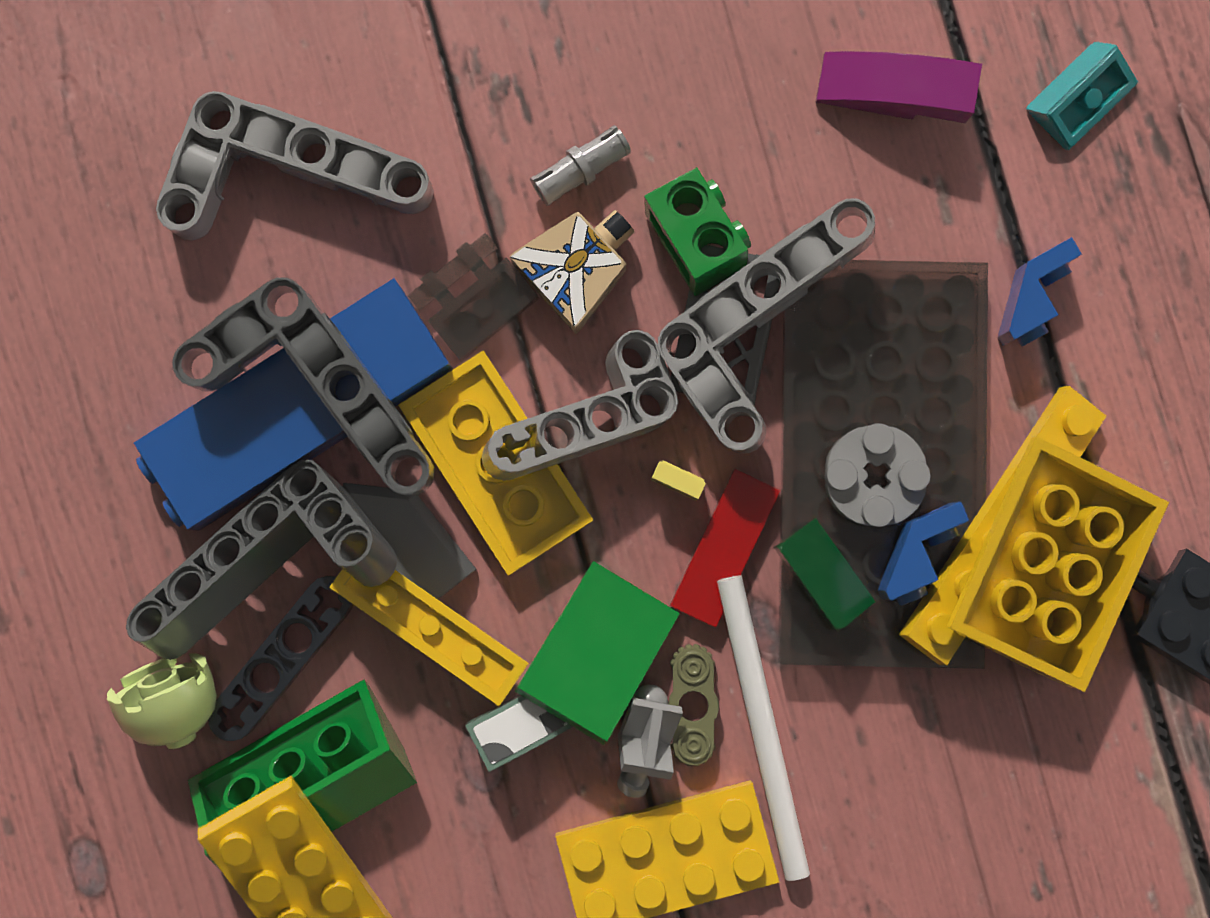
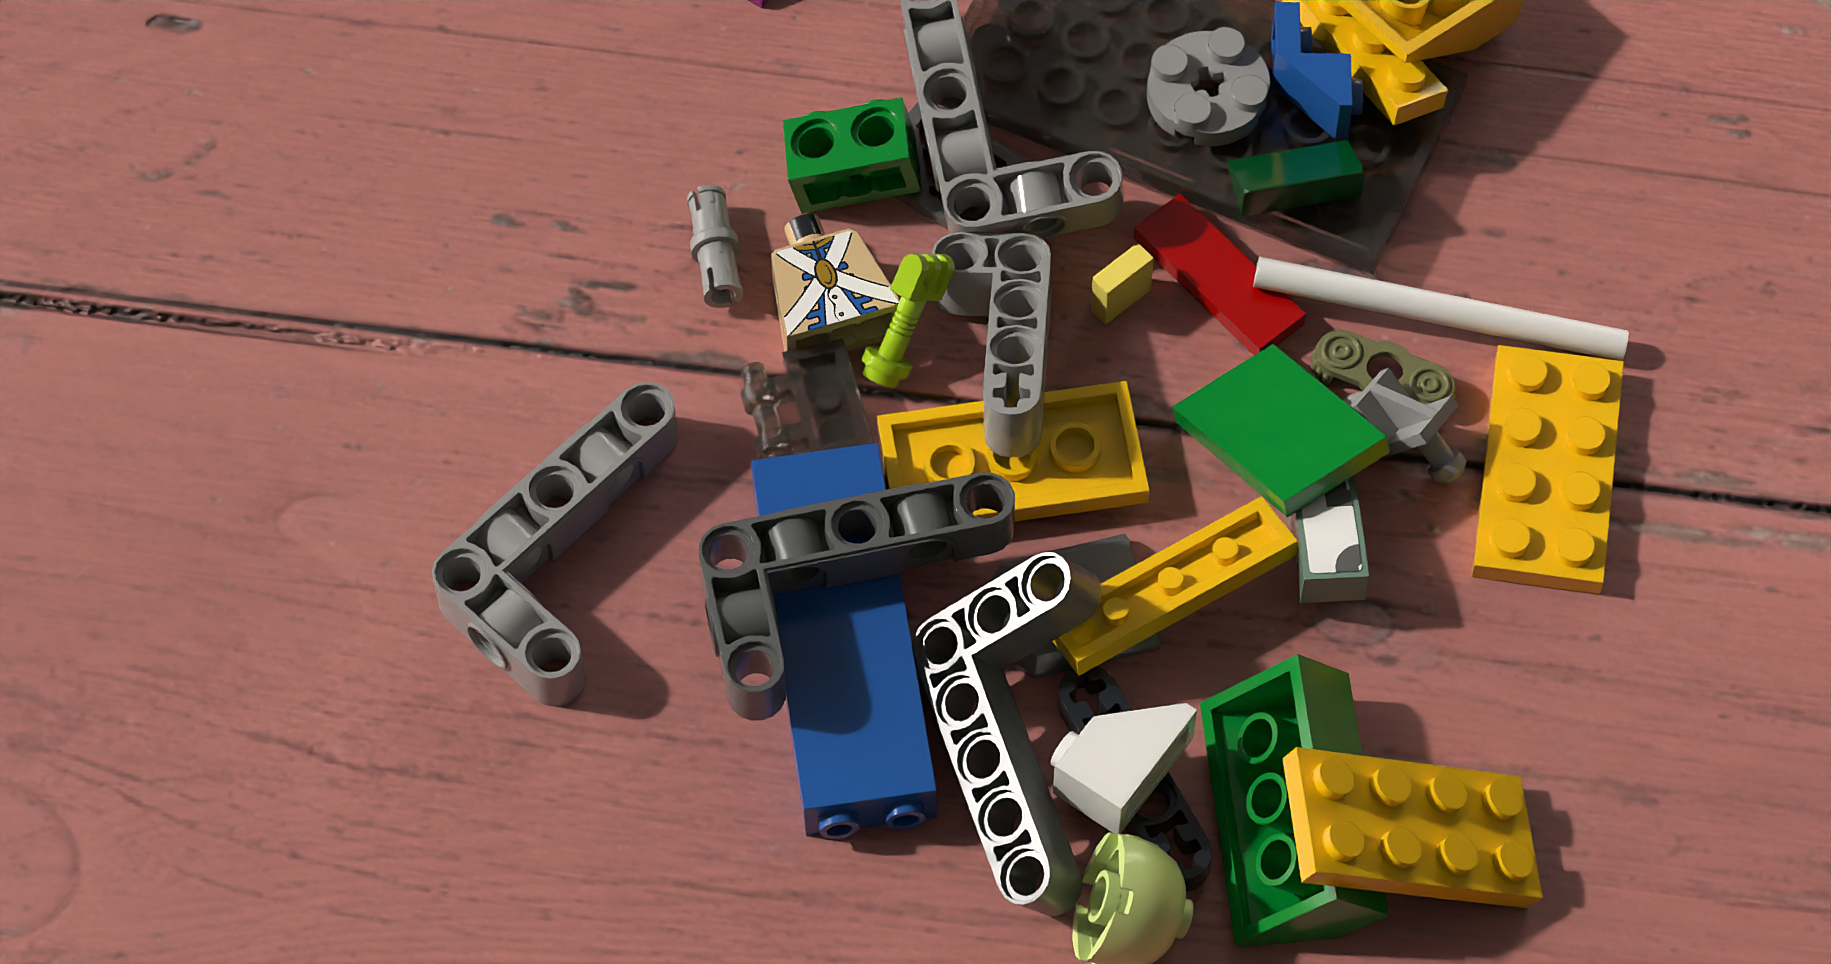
camera: 65 degrees left, 25 degrees down
(264, 650) = (1120, 761): none -> white slope
(537, 336) = (916, 281): none -> lime hinge

